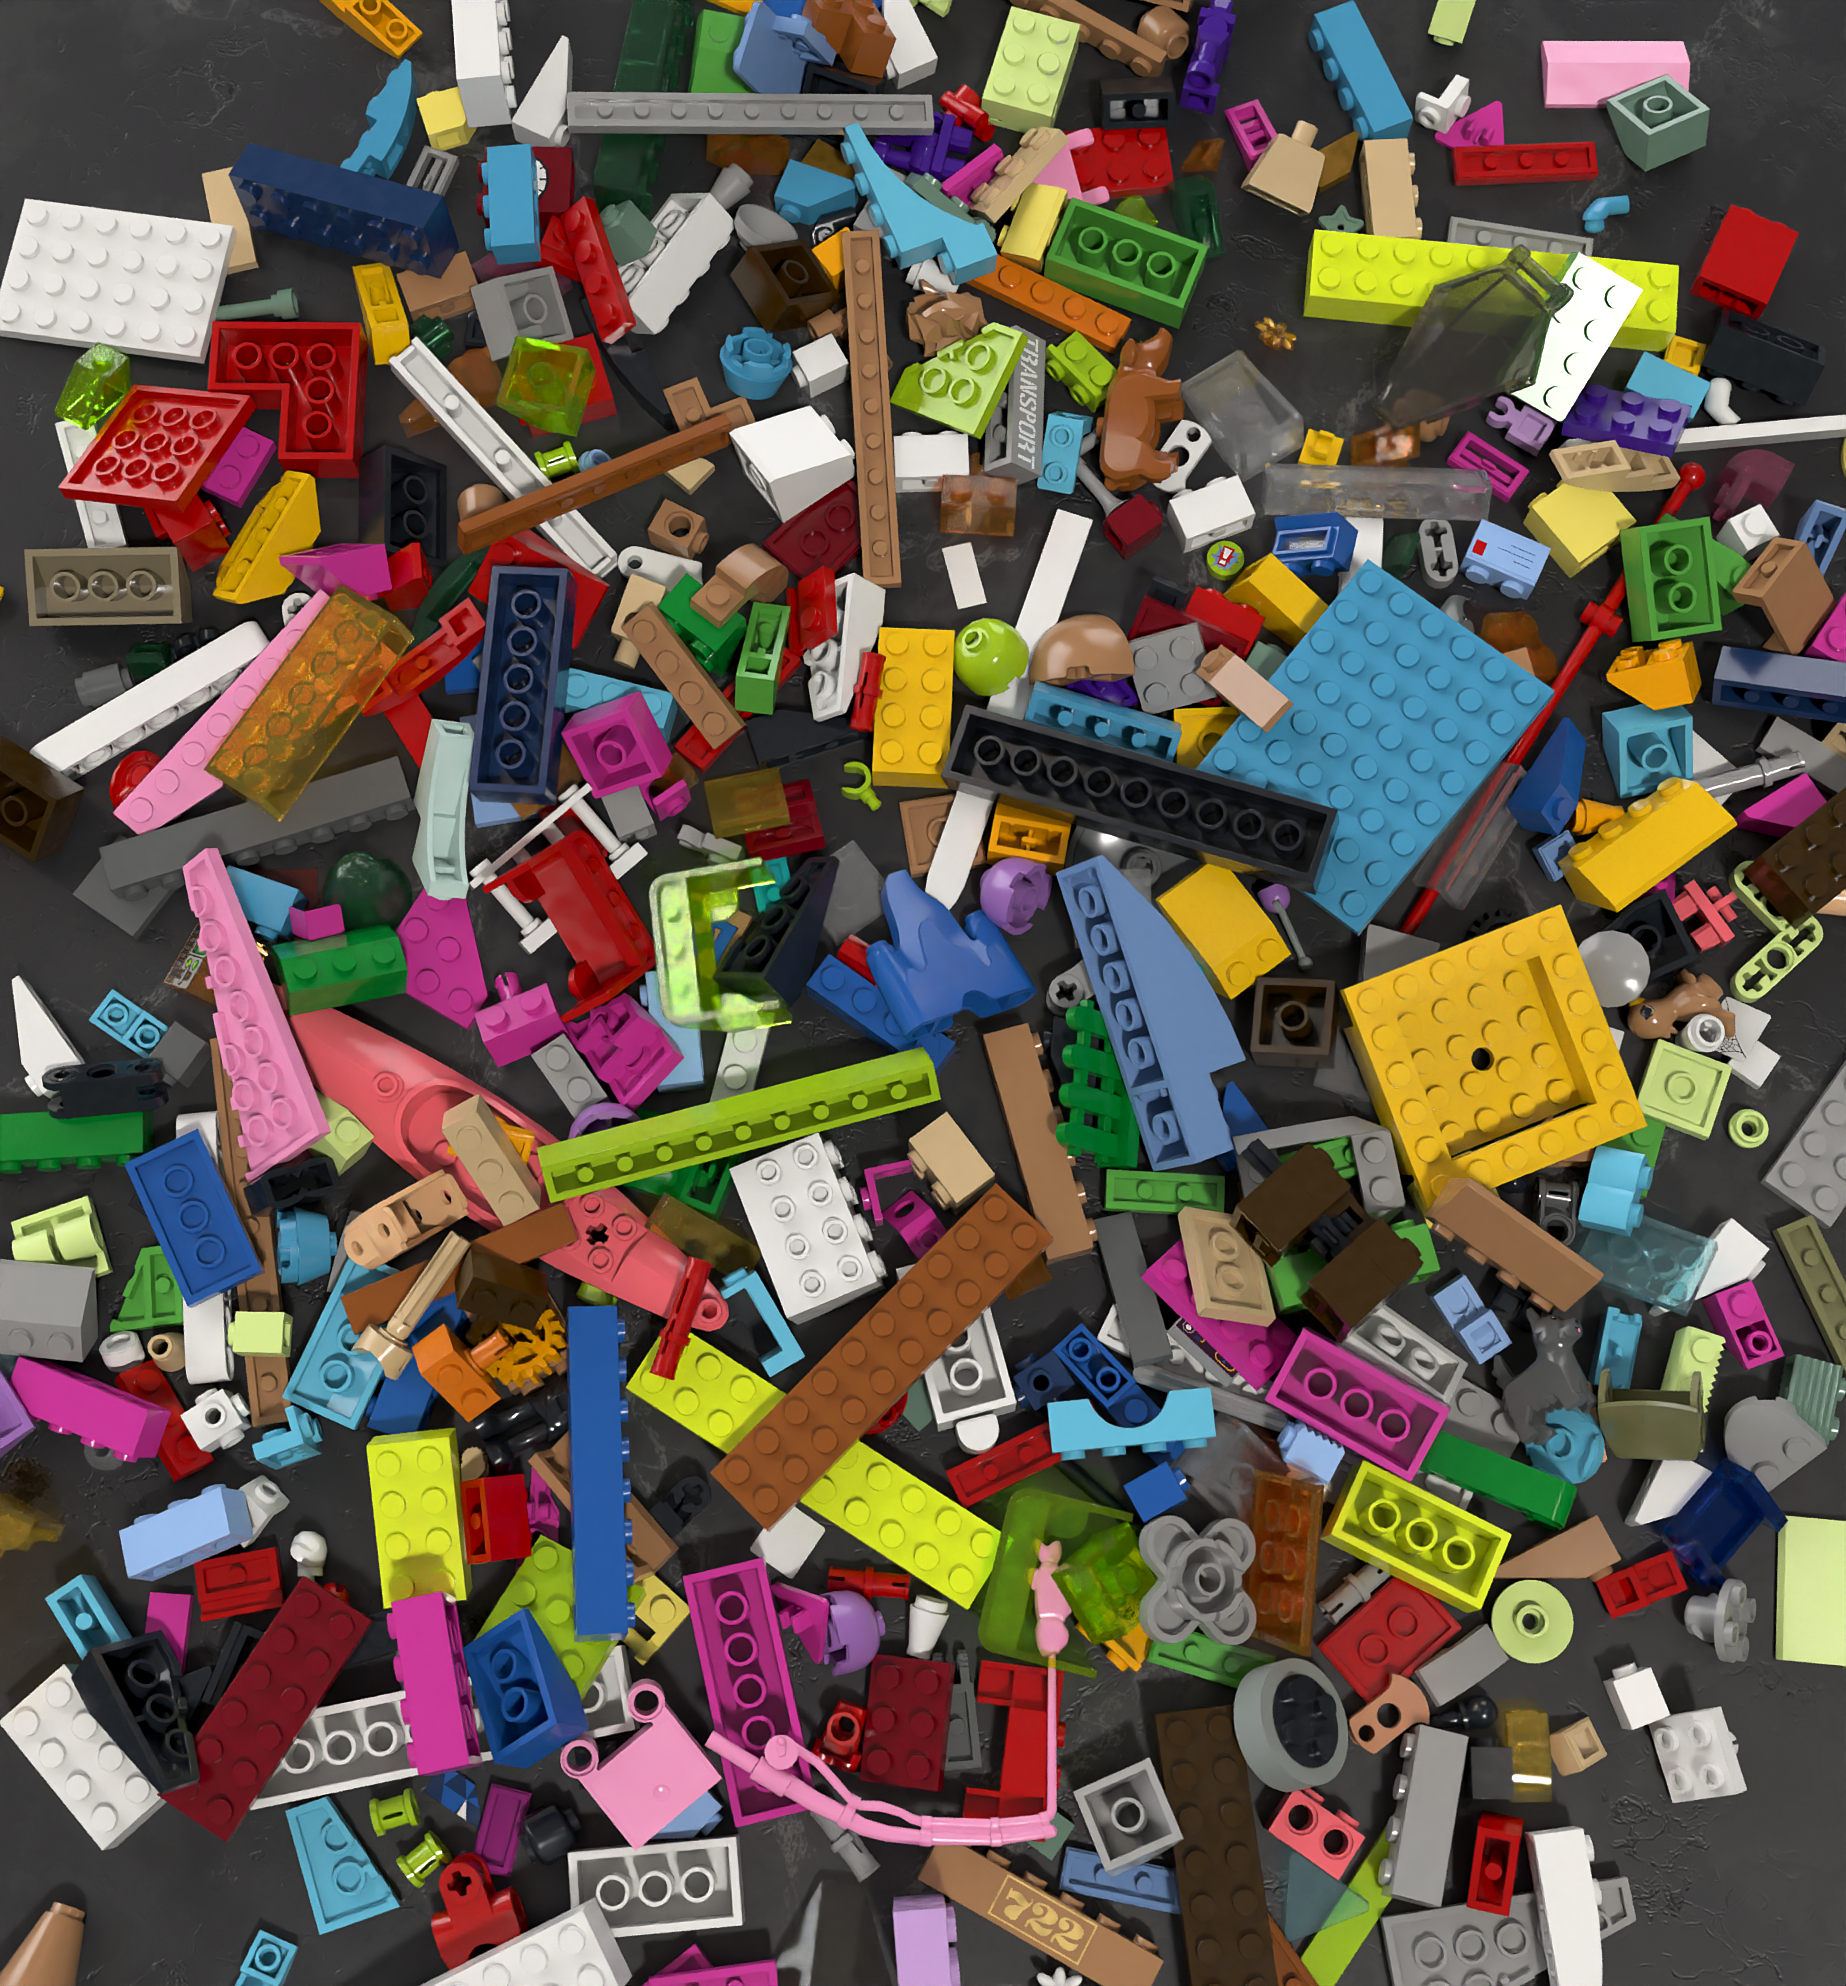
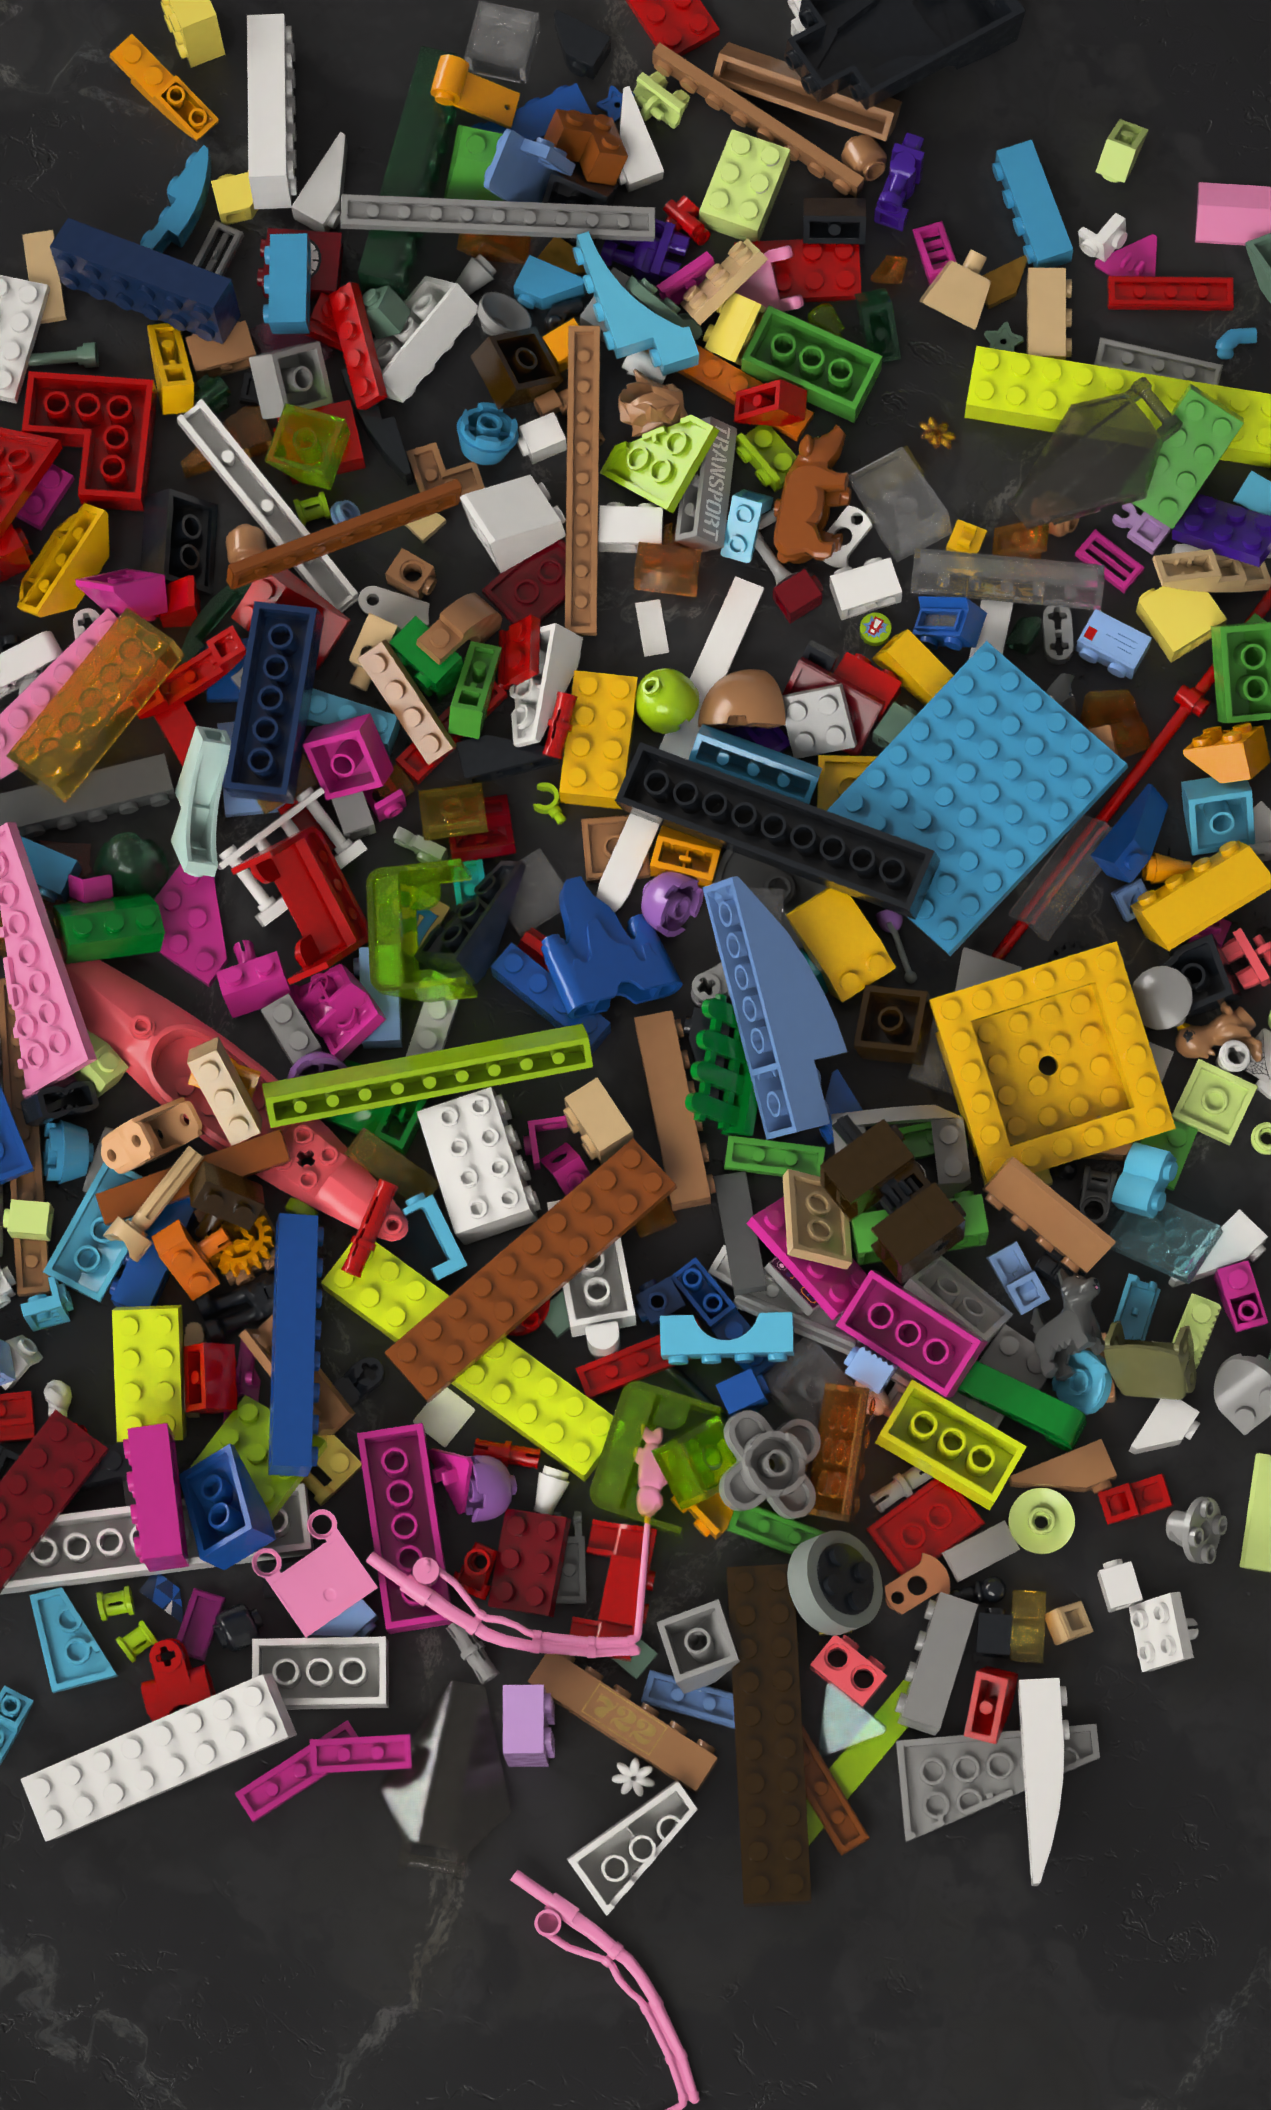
camera: 10 degrees right, 0 degrees up
(1084, 309) = (771, 404): none -> red slope
(1243, 688) = (871, 742): slope -> none
(1721, 1520) = (1202, 1451): clear blue panel -> none

